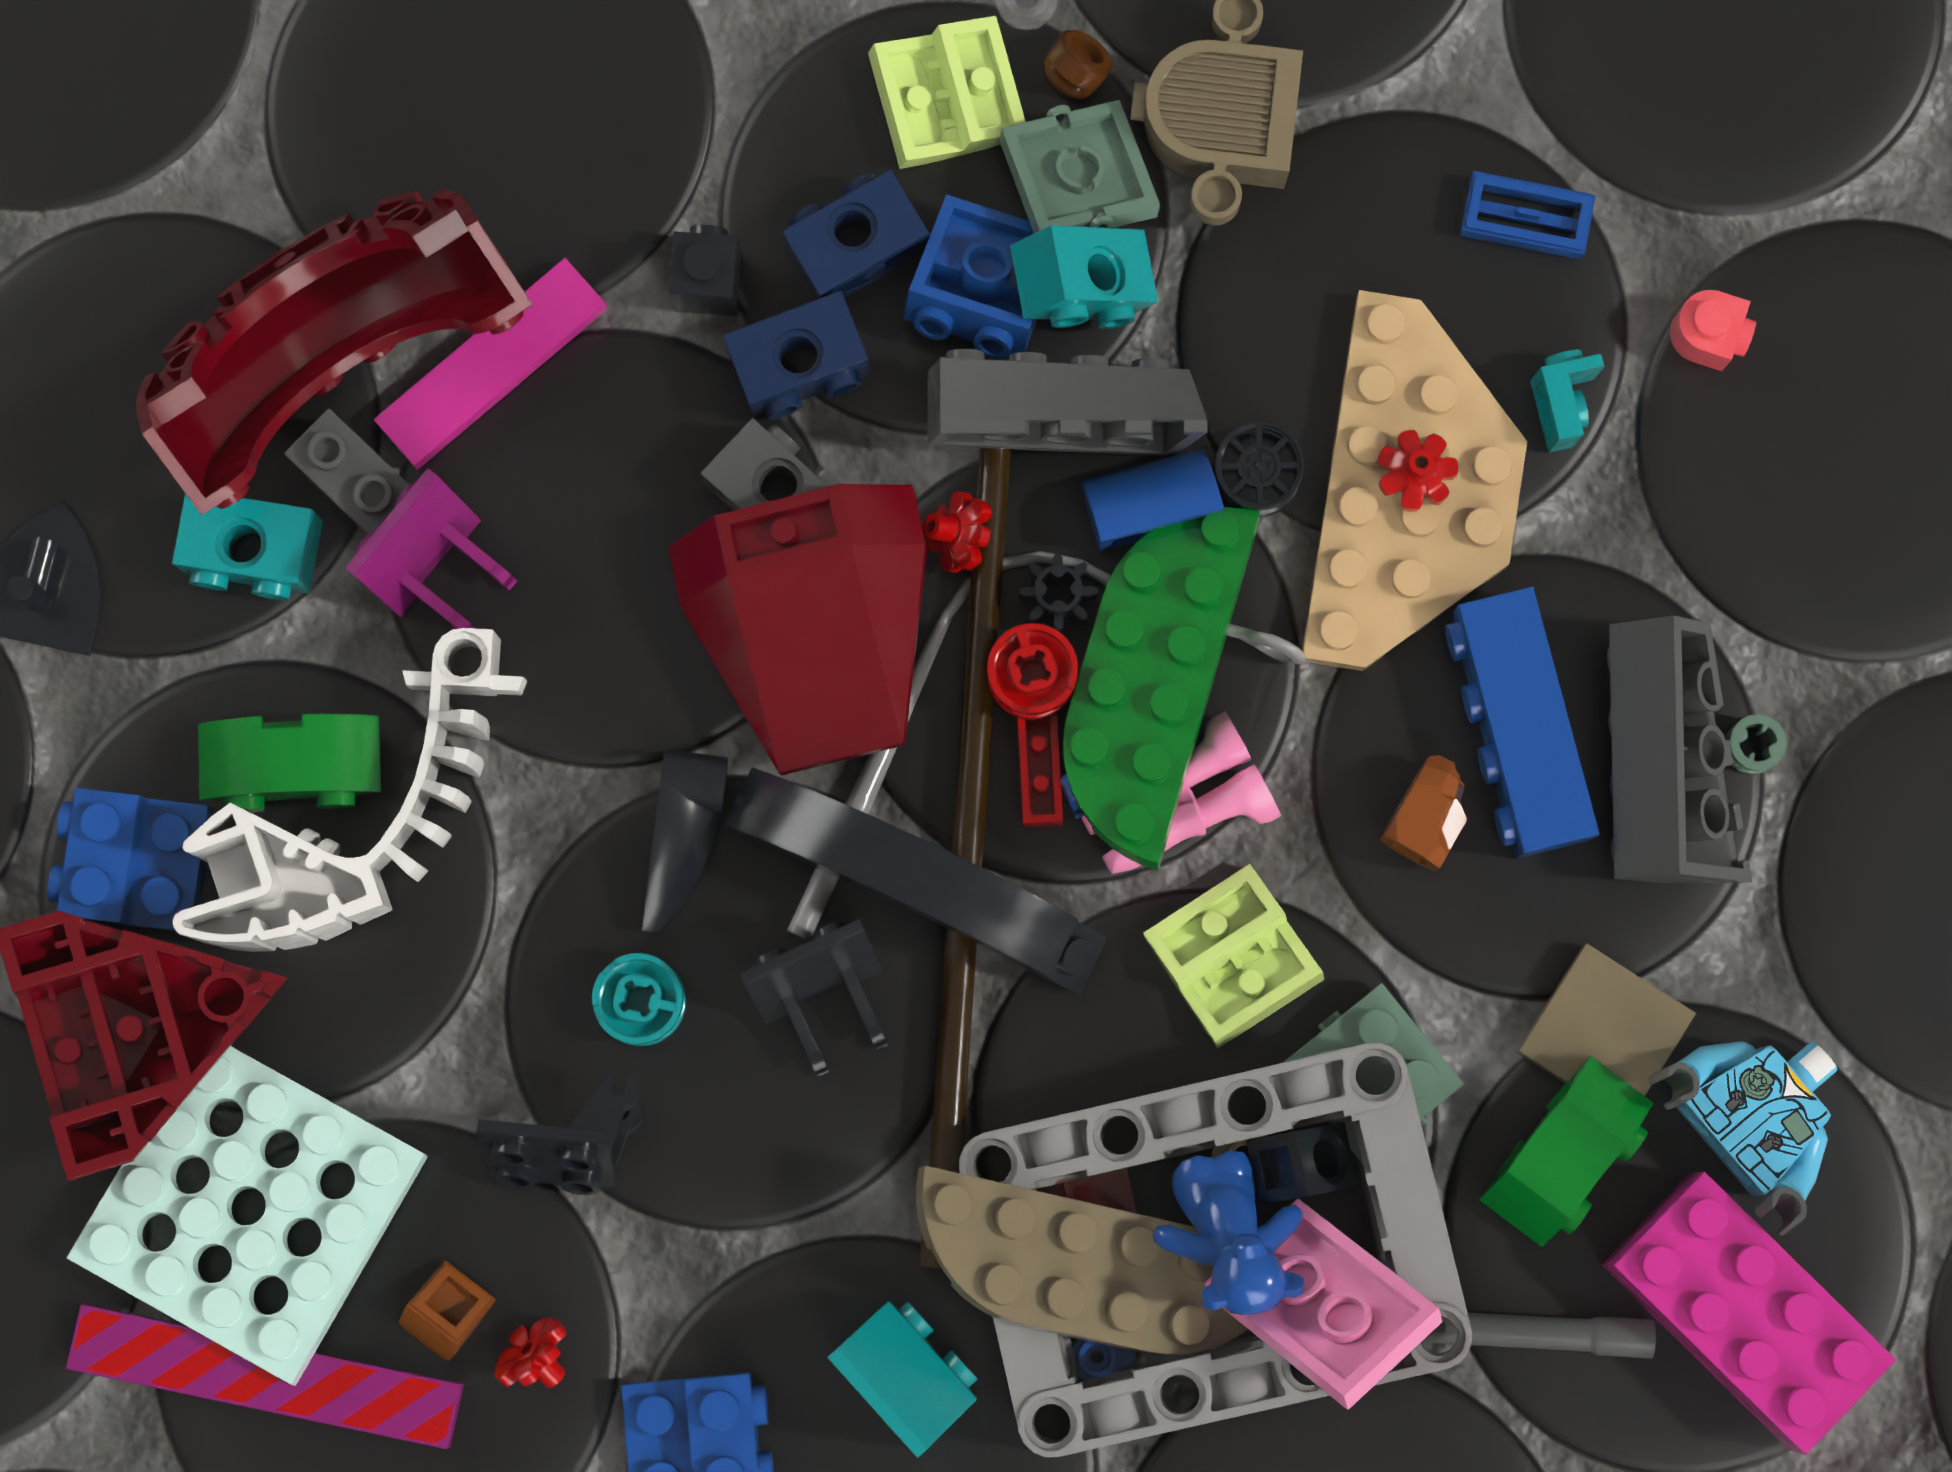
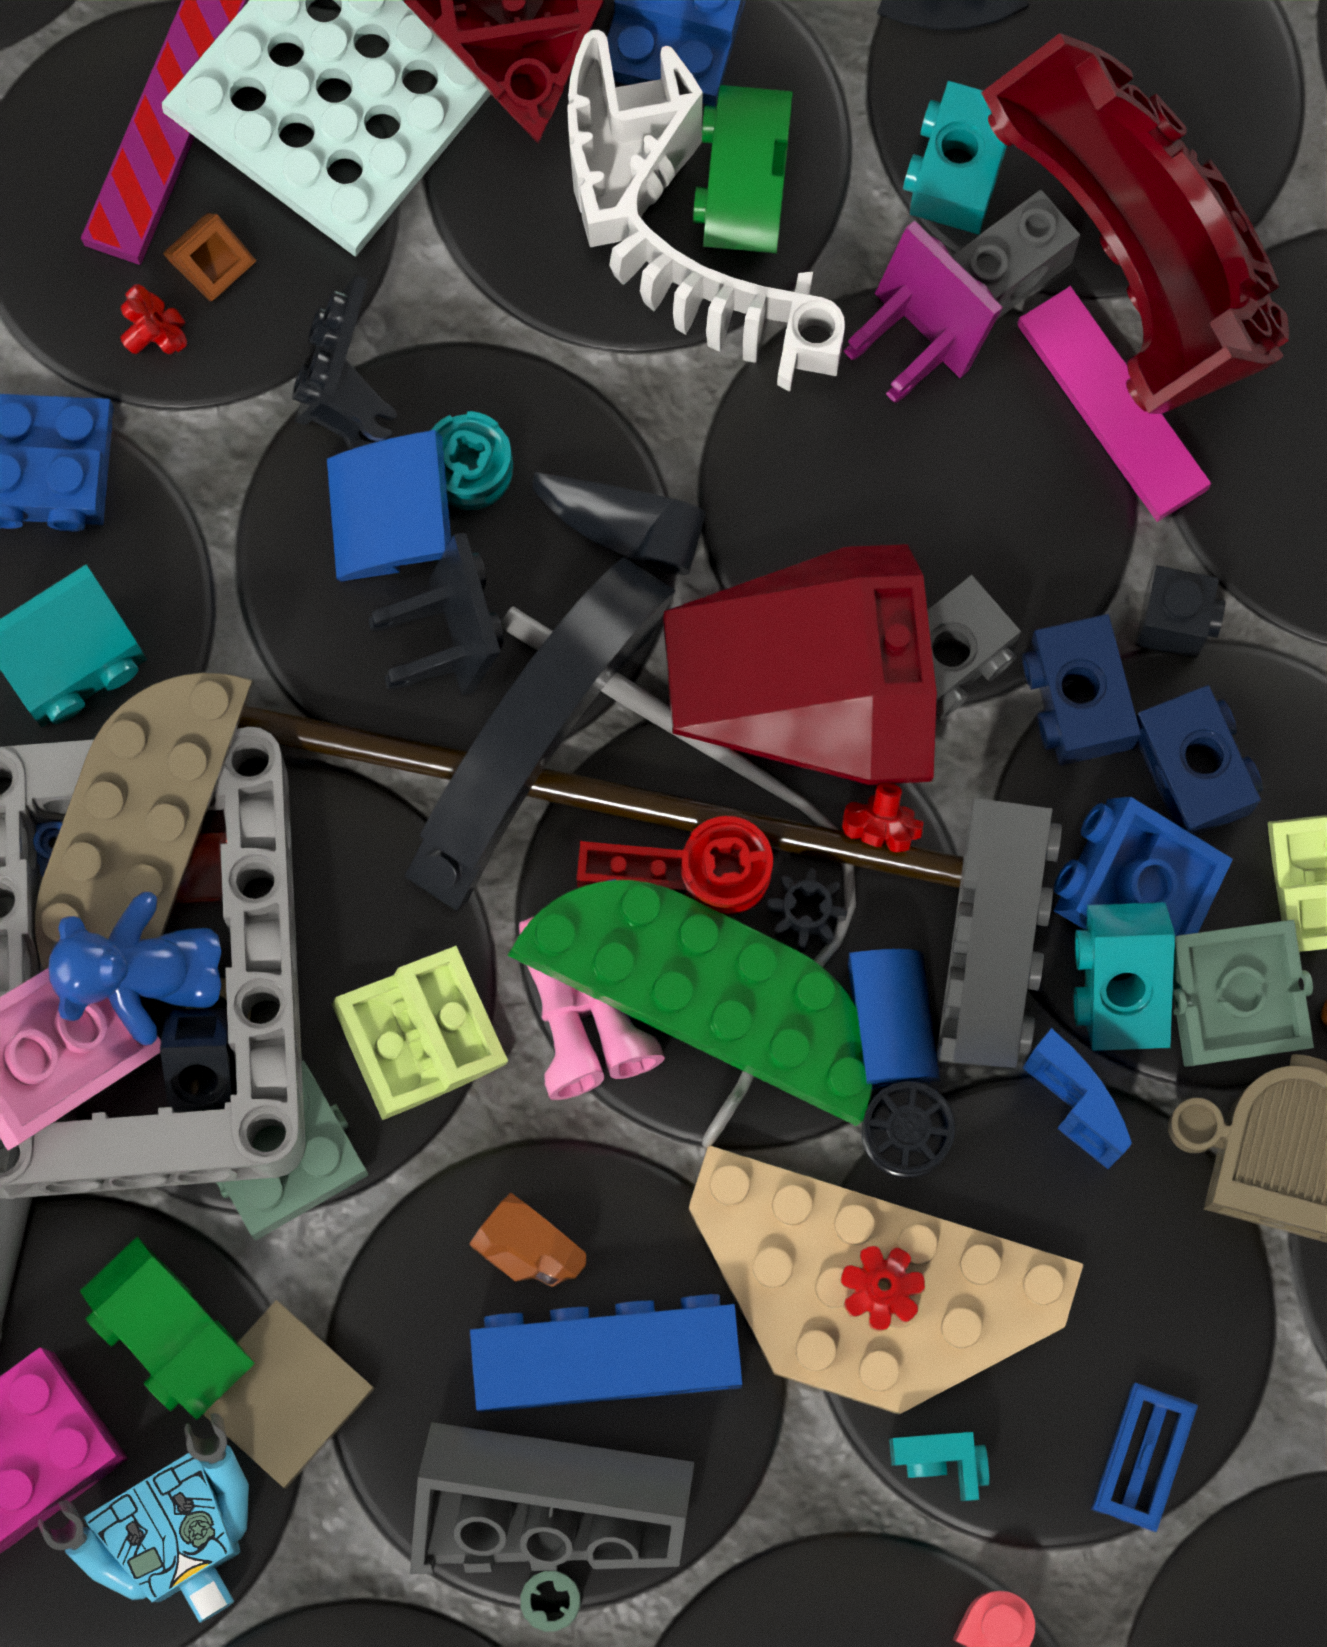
camera: 100 degrees right, 5 degrees down
(701, 1071) = (388, 505): none -> blue slope
(1214, 299) = (1095, 1119): none -> blue slope

